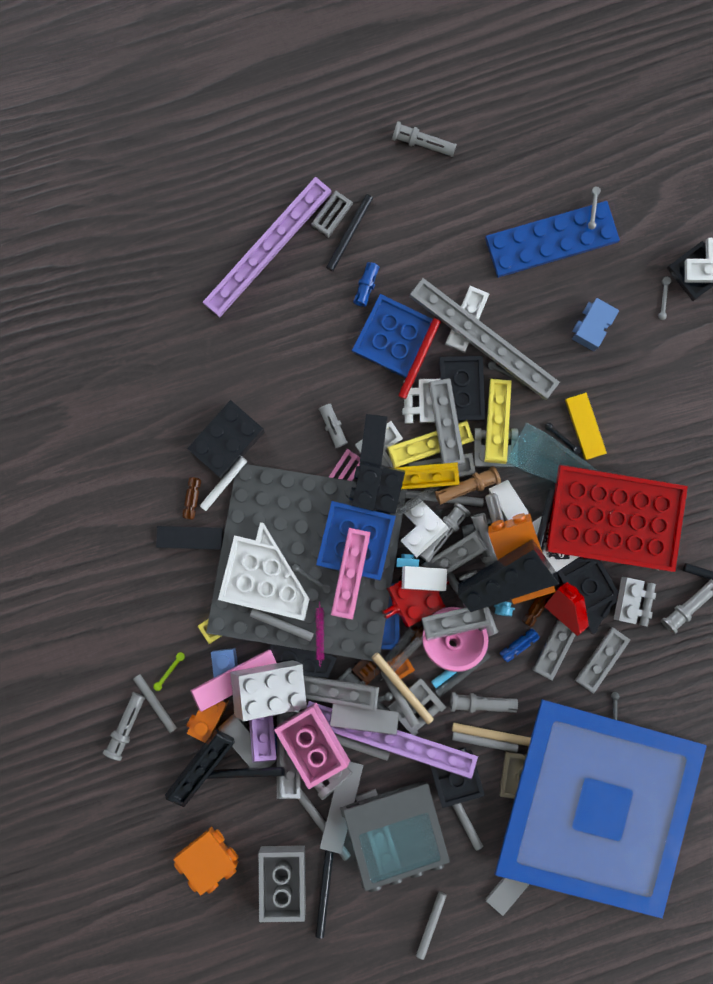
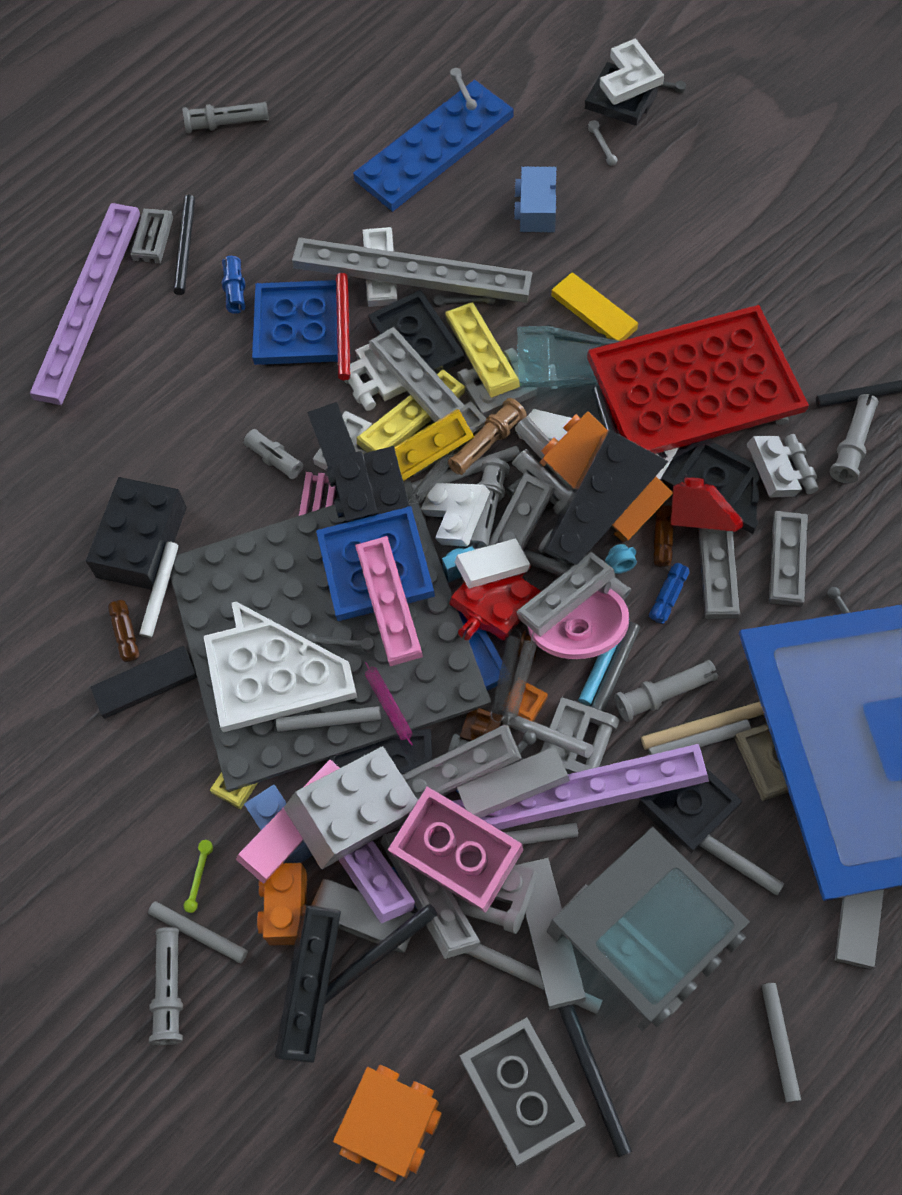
camera: 20 degrees left, 20 degrees down
(403, 689) = (542, 716): tan bar -> none

